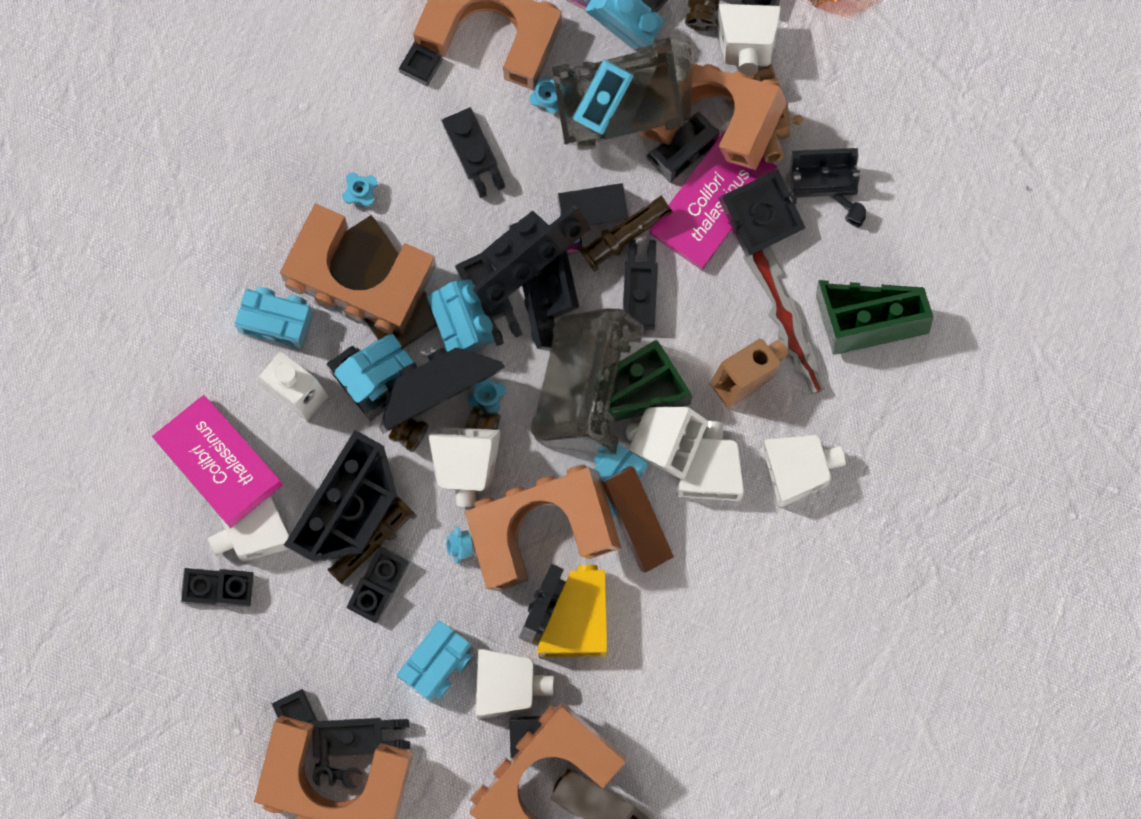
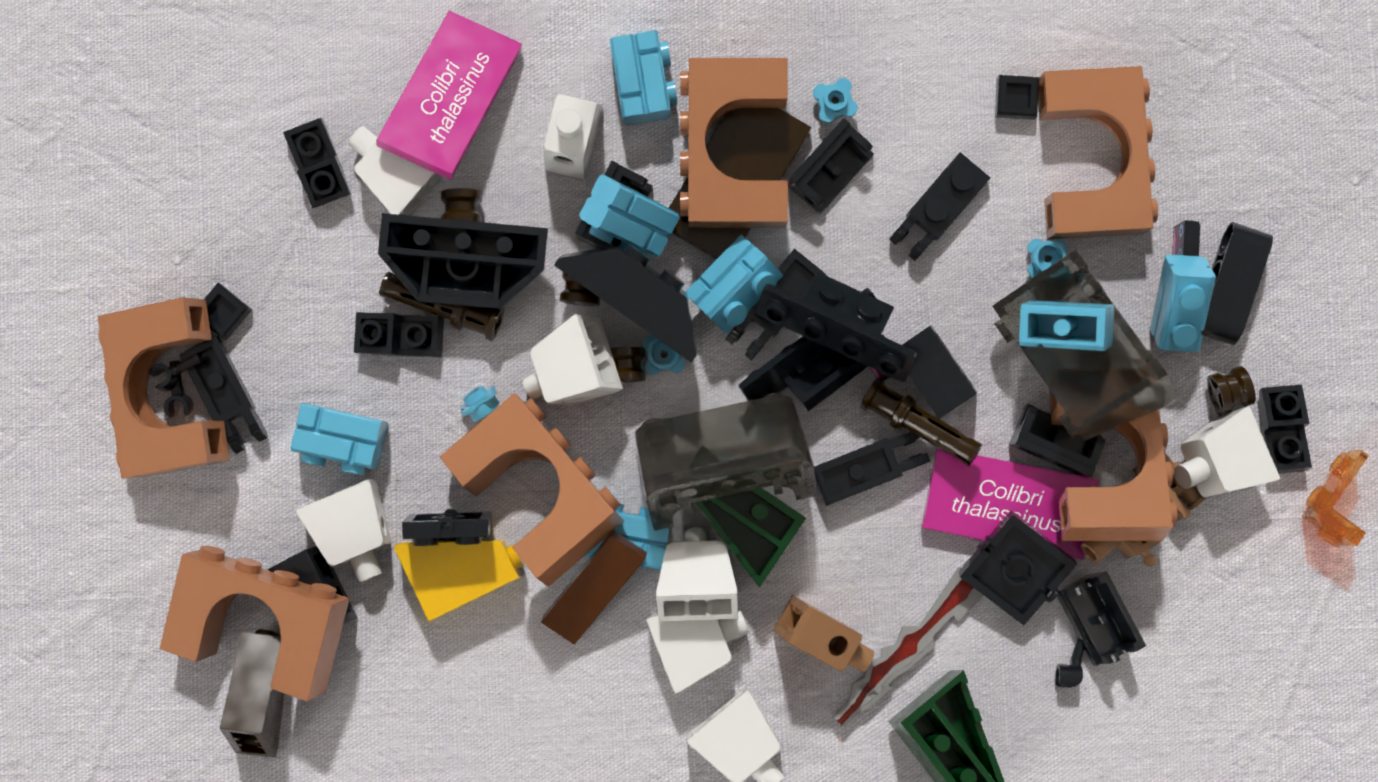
camera: 65 degrees right, 10 degrees up
(302, 491) = (461, 204): none -> dark brown wheel
(407, 212) = (831, 166): none -> black hinge

